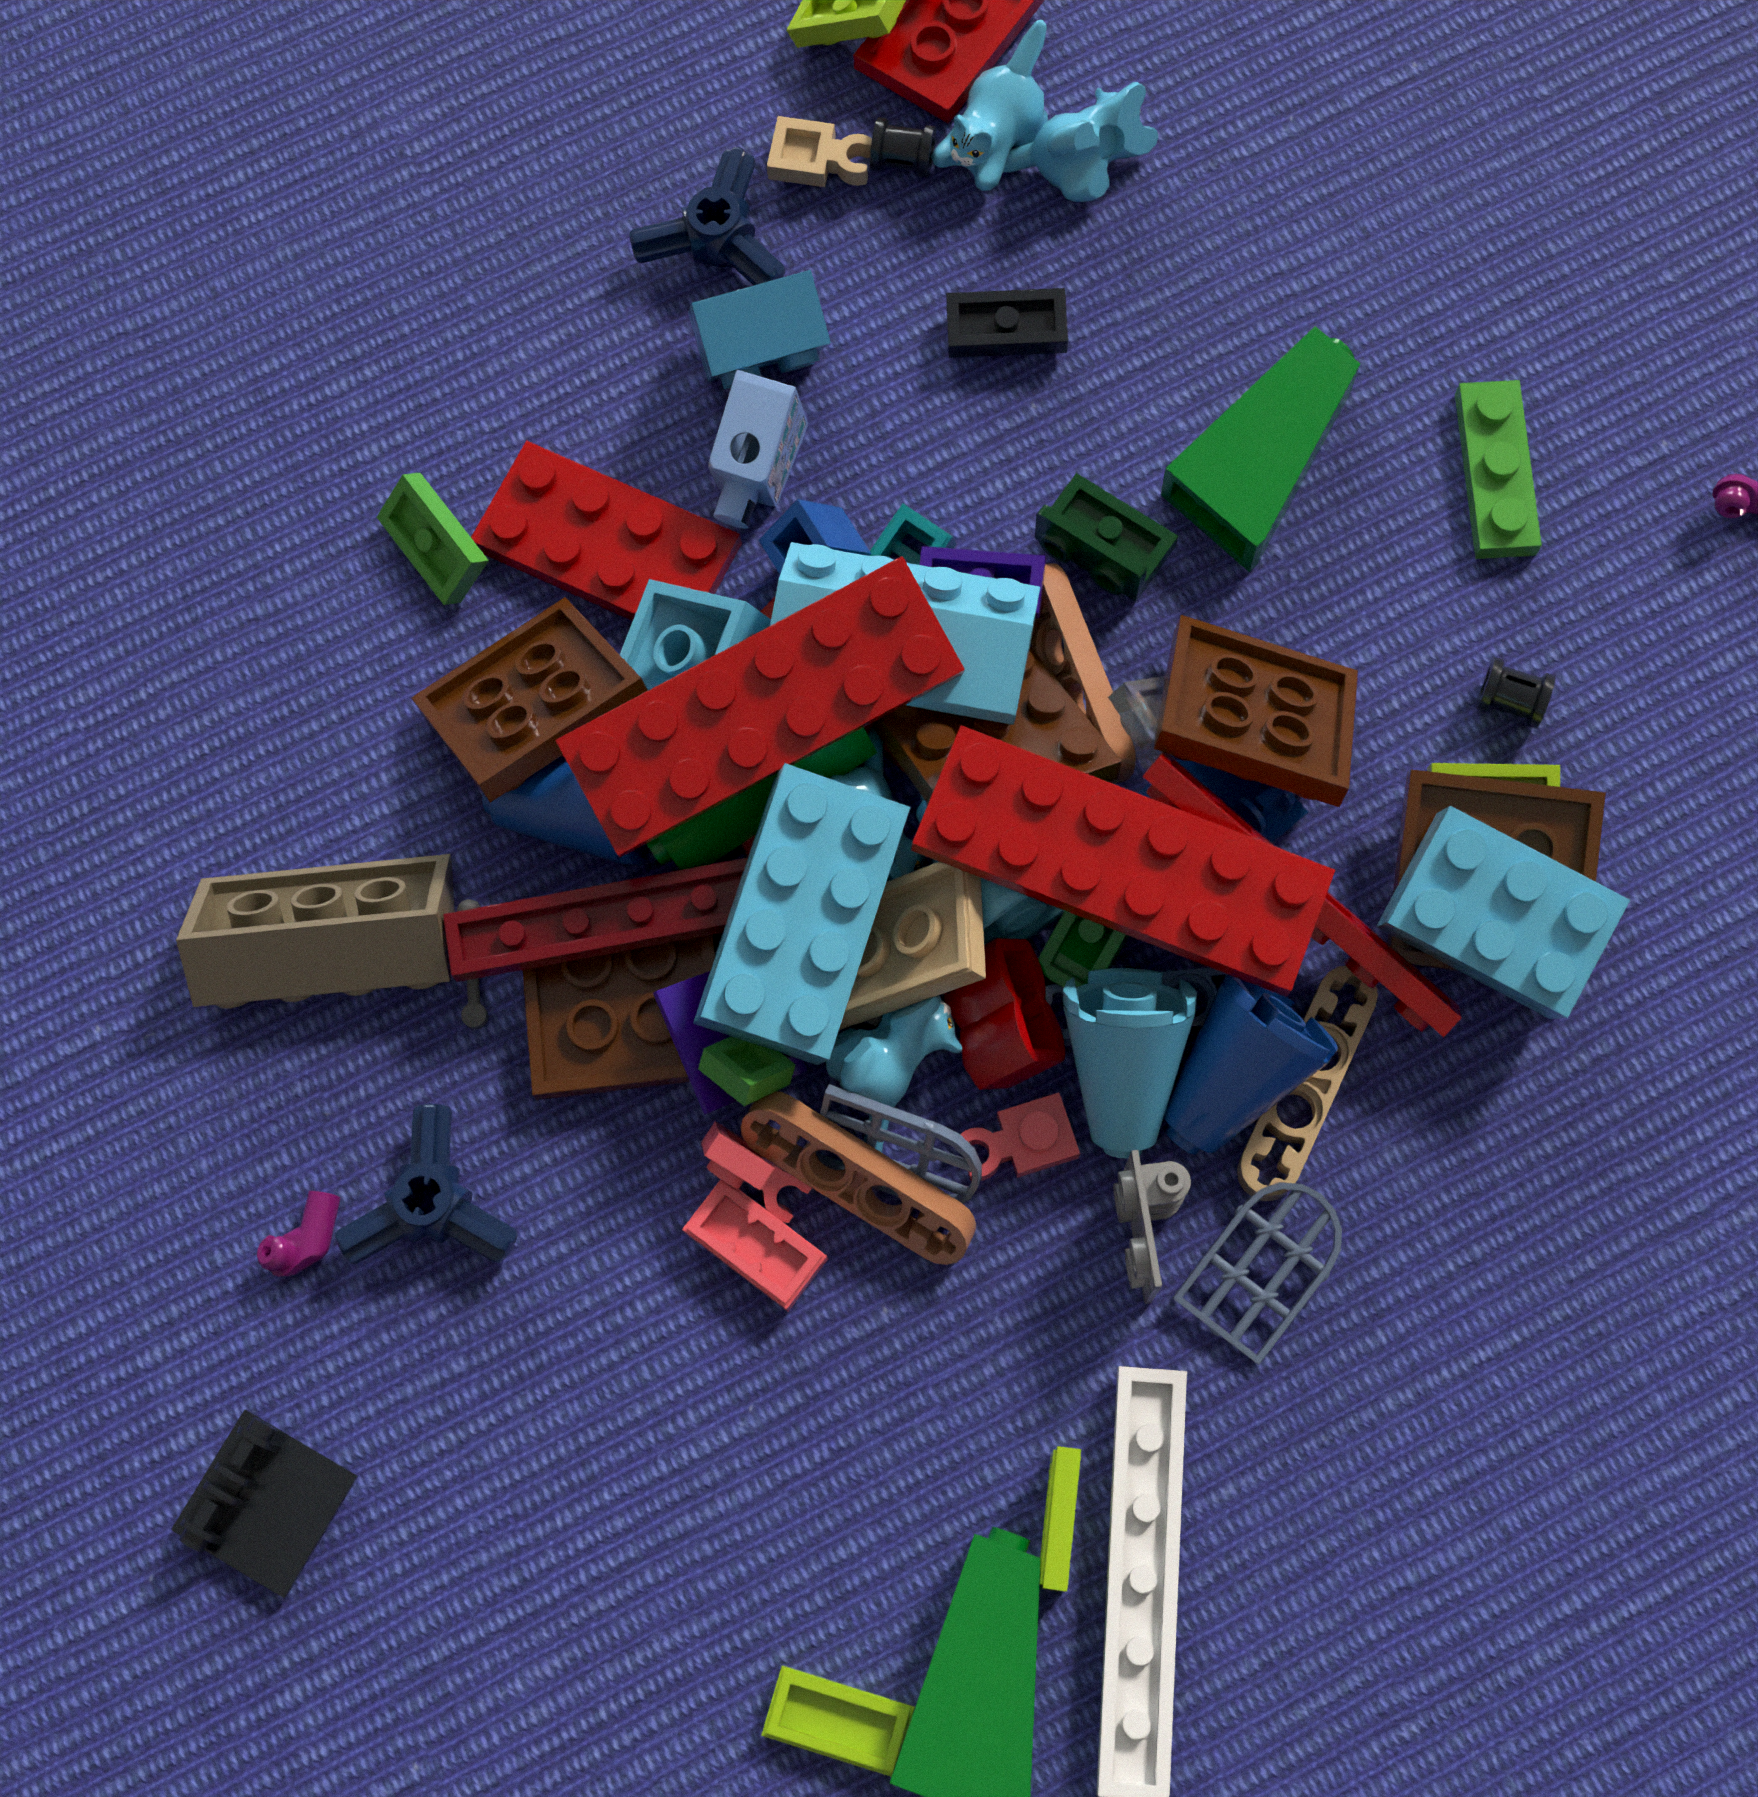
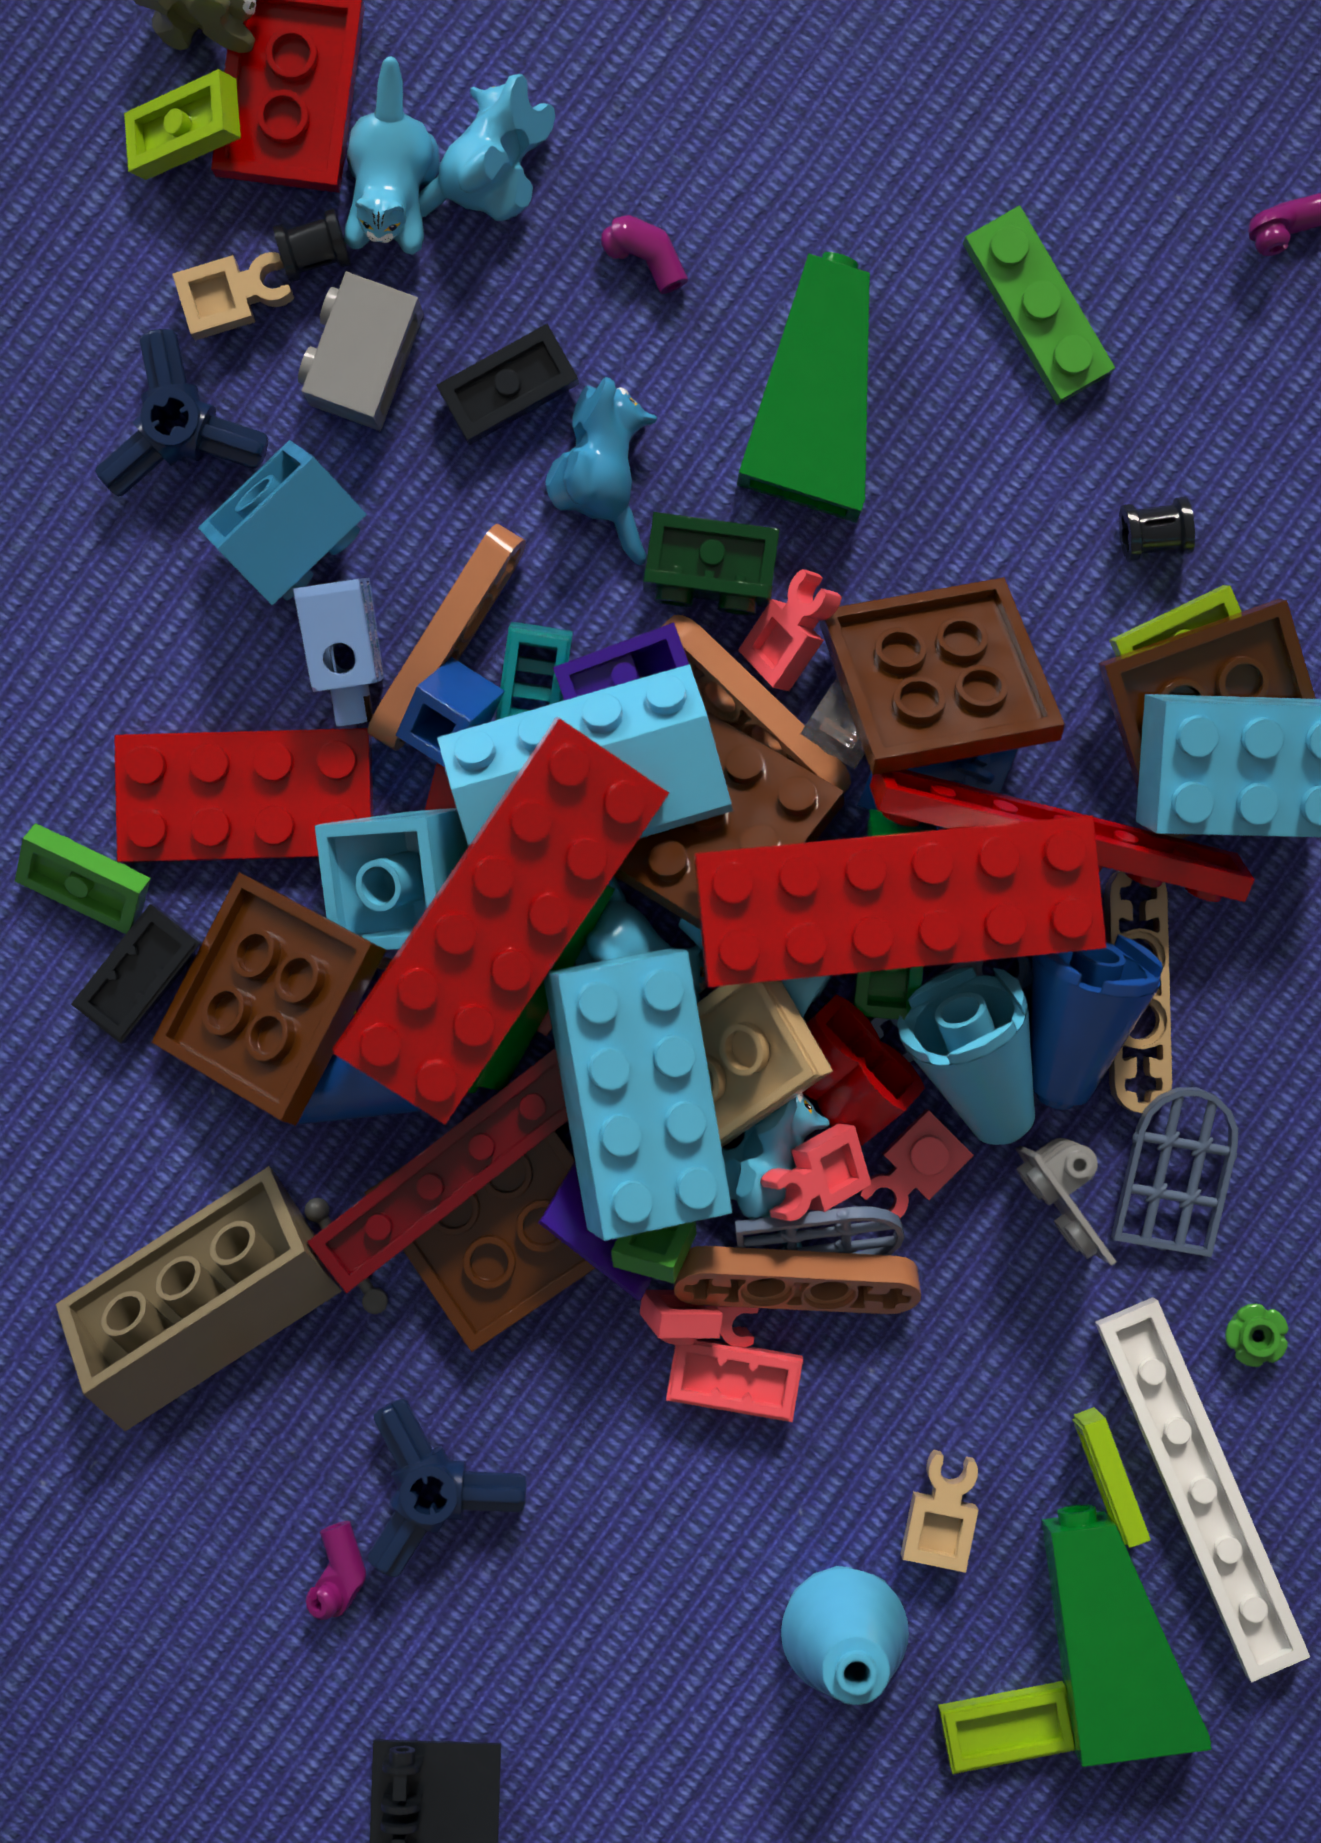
camera: 35 degrees left, 15 degrees up
(432, 637) = (137, 973): none -> black plate
(760, 1549) = (845, 1633): none -> medium azure cone
(860, 481) = (451, 626): none -> nougat beam
(874, 1481) = (941, 1524): none -> tan plate
(899, 242) = (360, 350): none -> light grey brick
(932, 1085) = (825, 1173): none -> coral plate
(1045, 417) = (597, 471): none -> dark azure animal
(1139, 621) = (784, 633): none -> coral plate
(1187, 274) = (649, 243): none -> magenta arm
(1249, 1457) = (1253, 1318): none -> bright green plate

